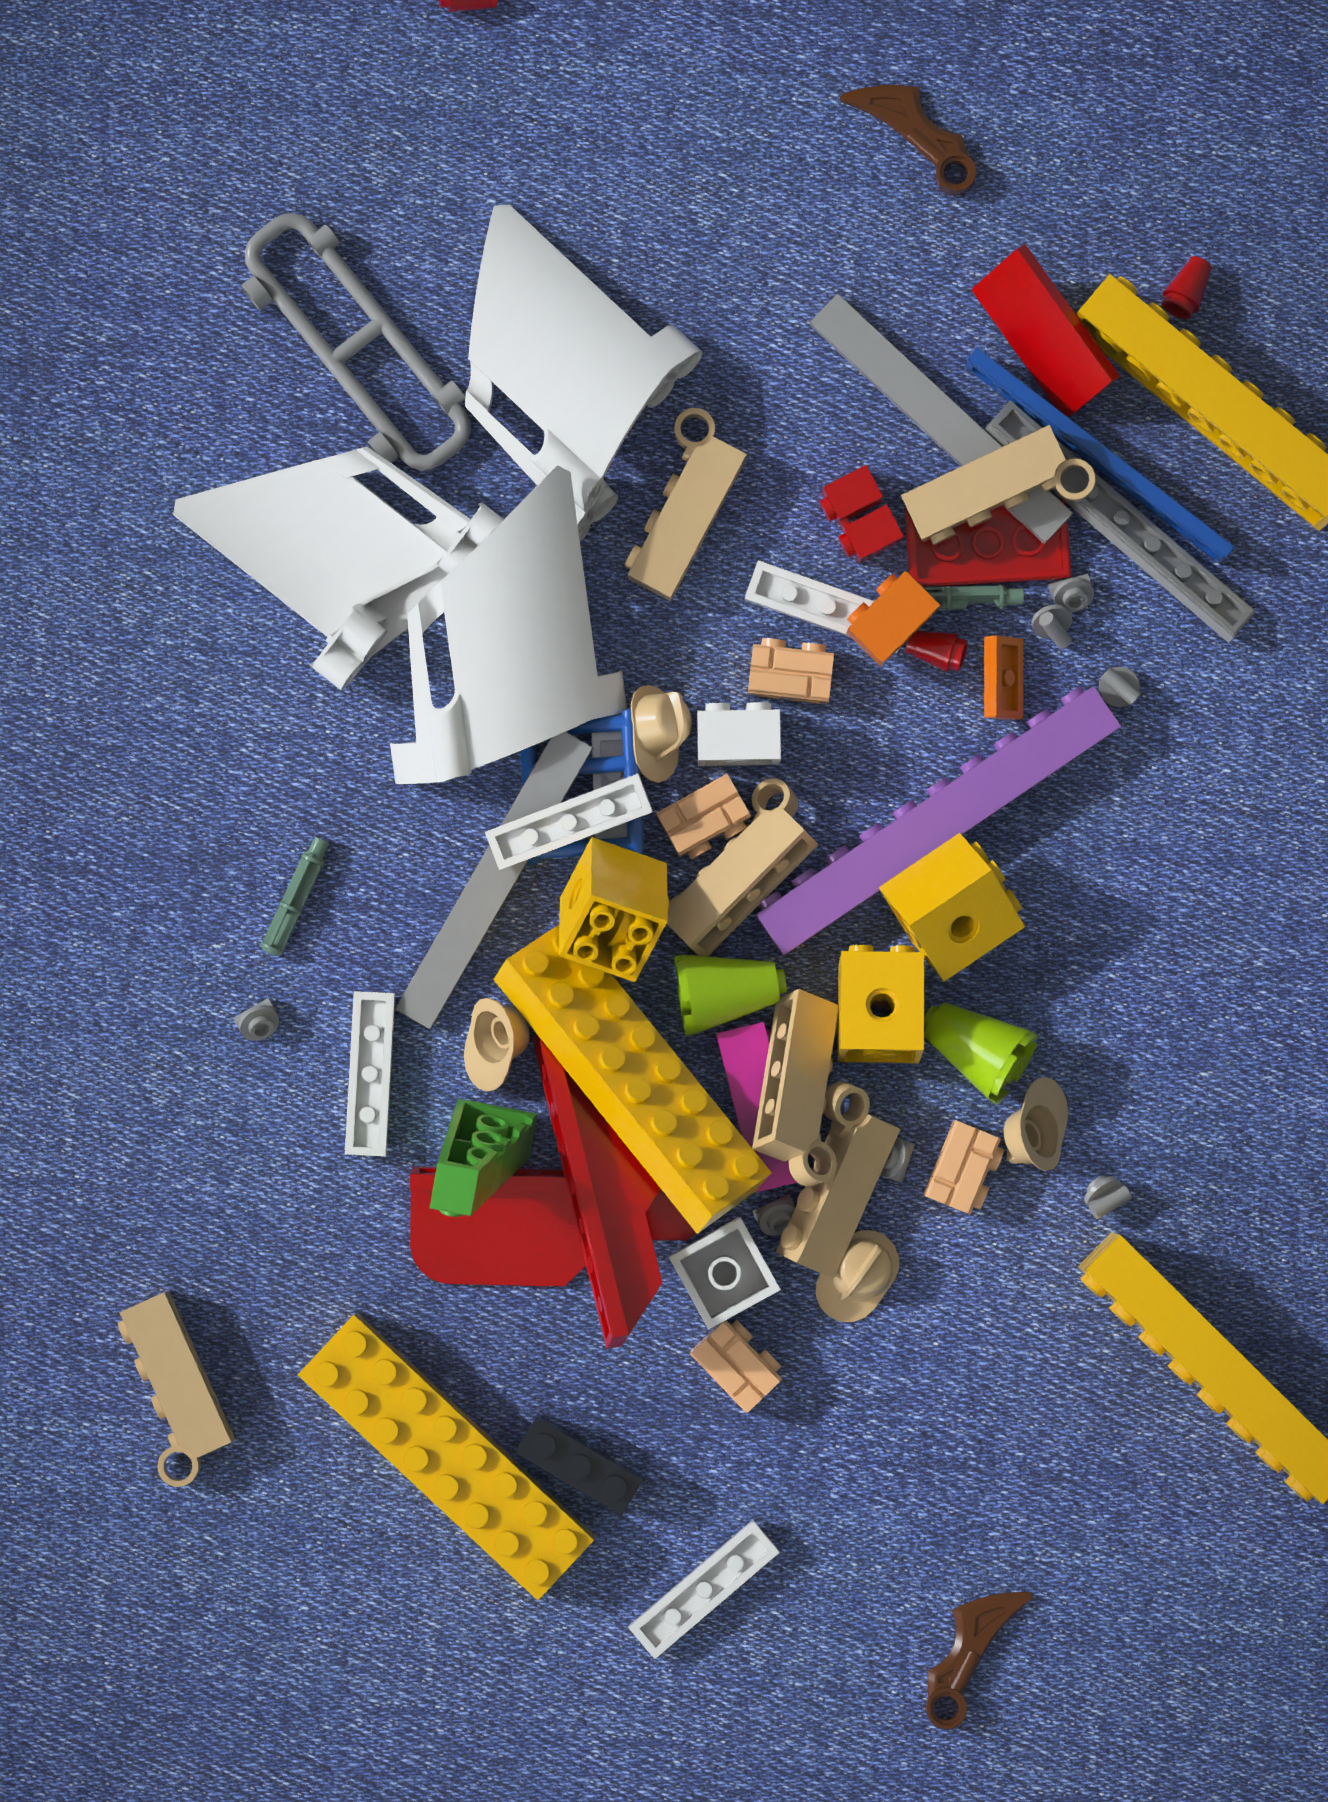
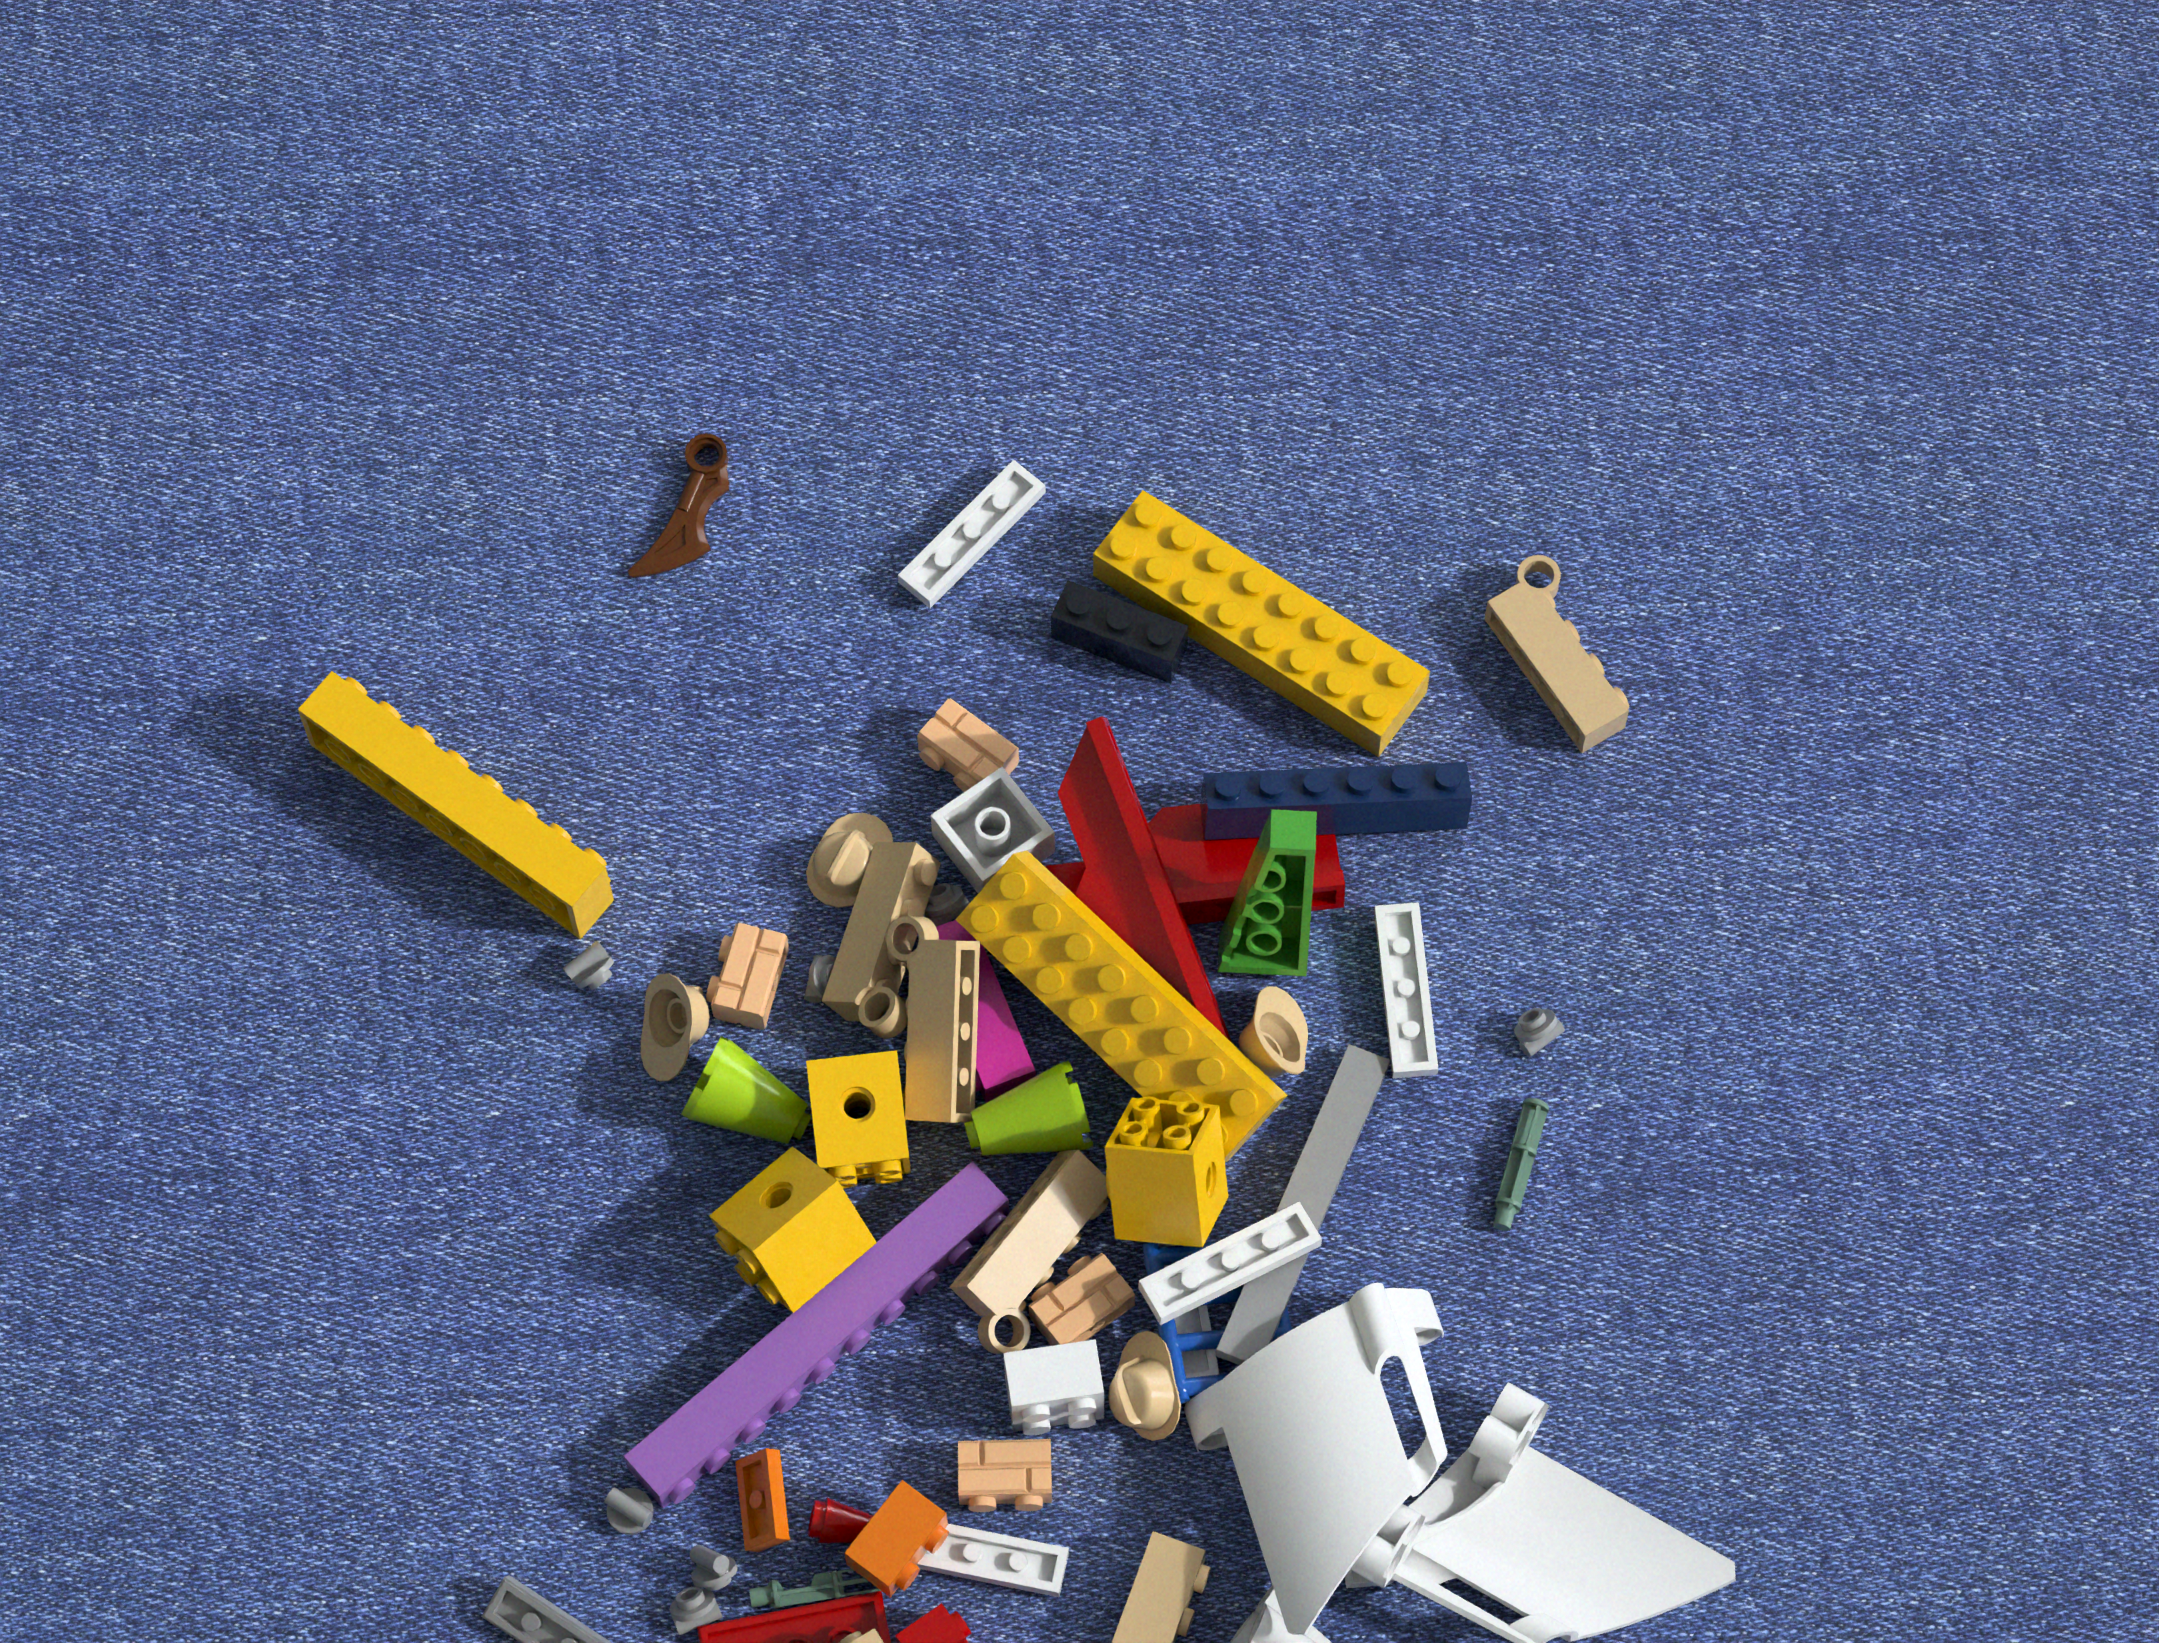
camera: 170 degrees right, 20 degrees down
(404, 1260) = (1344, 798): none -> dark blue brick

